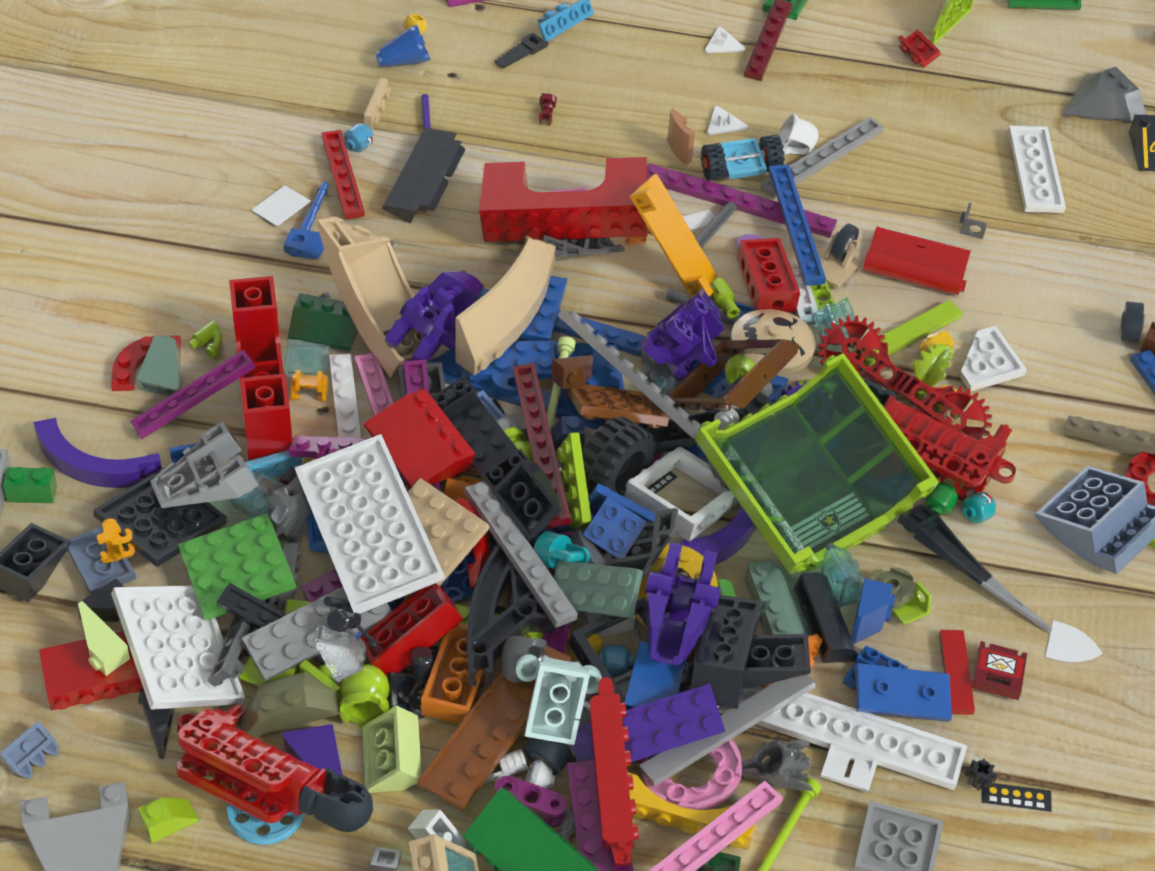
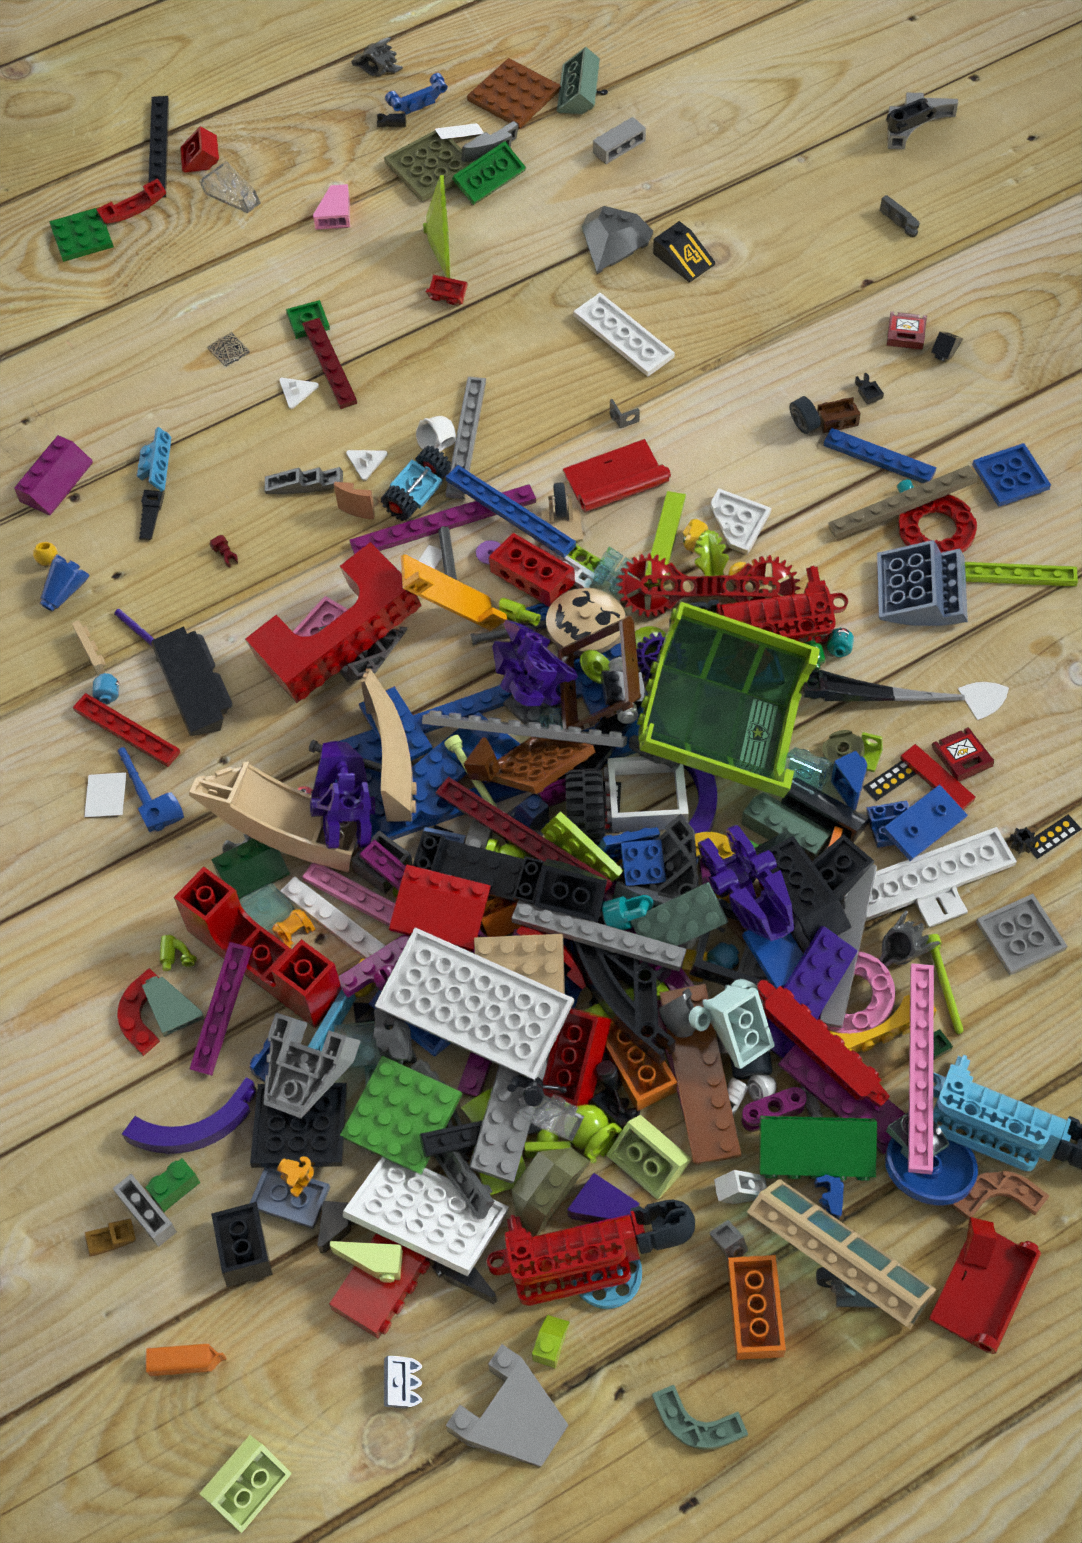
camera: 35 degrees left, 10 degrees up
(656, 102) = (308, 481): none -> dark grey slope
(911, 643) = (889, 780): none -> black sticker

